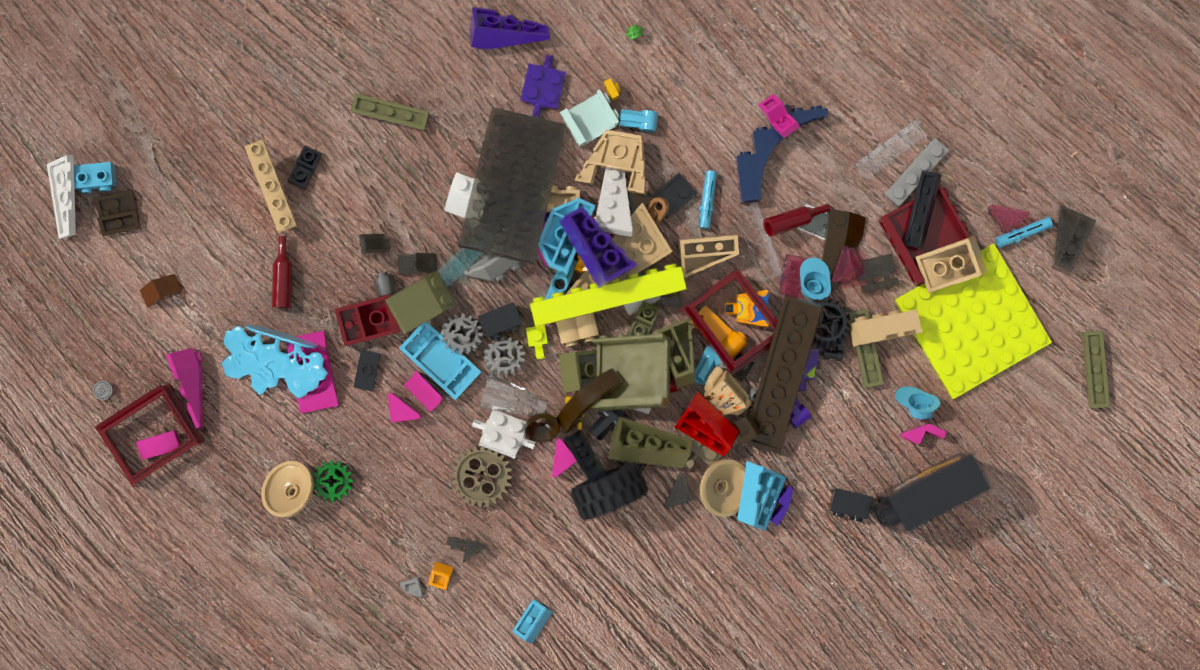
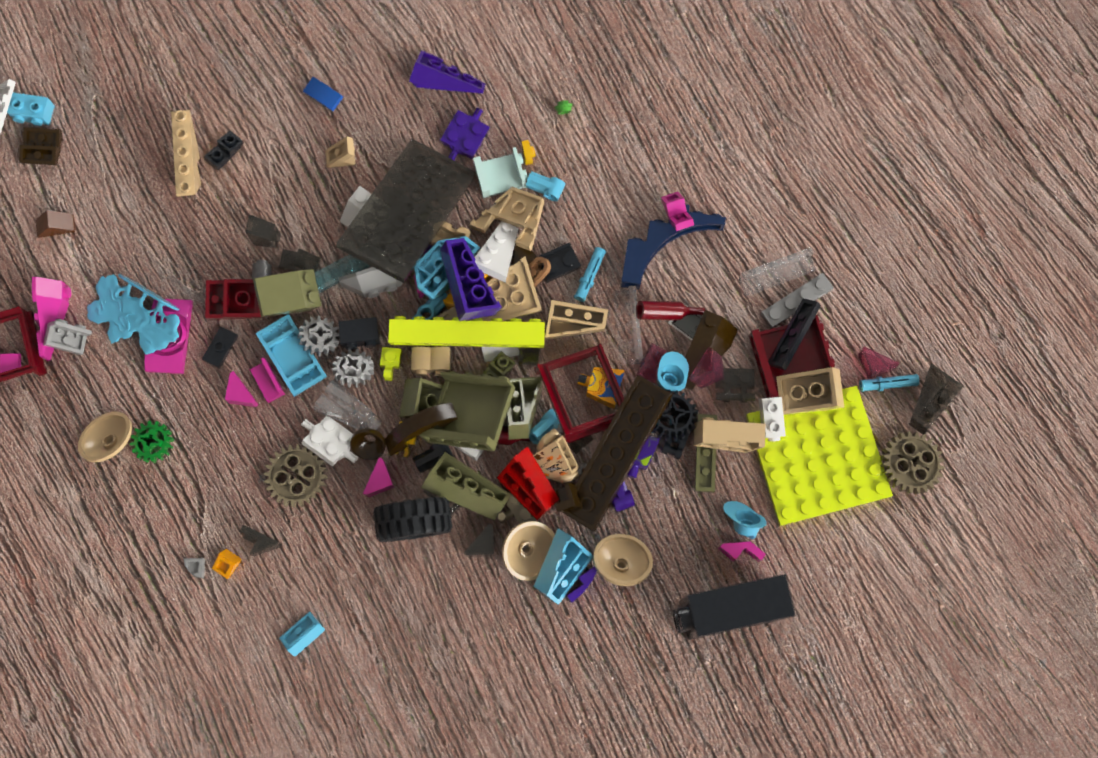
camera: 20 degrees right, 10 degrees down
(215, 402) = (66, 337): none -> light grey bracket
(281, 277) = (168, 241): dark red piece -> none
(386, 81) = (323, 94): none -> blue slope
(390, 112) = (316, 120): olive plate -> none
(424, 141) = (341, 153): none -> tan slope
(585, 456) = (399, 480): black plate -> none
(732, 341) = (576, 410): light orange door -> none
(817, 464) = (624, 552): none -> tan dish
(851, 504) = (651, 601): black brick -> none
(921, 299) = (772, 416): none -> white brick
(1061, 323) = (907, 479): none -> dark tan gear
(1095, 369) = (931, 534): olive plate -> none

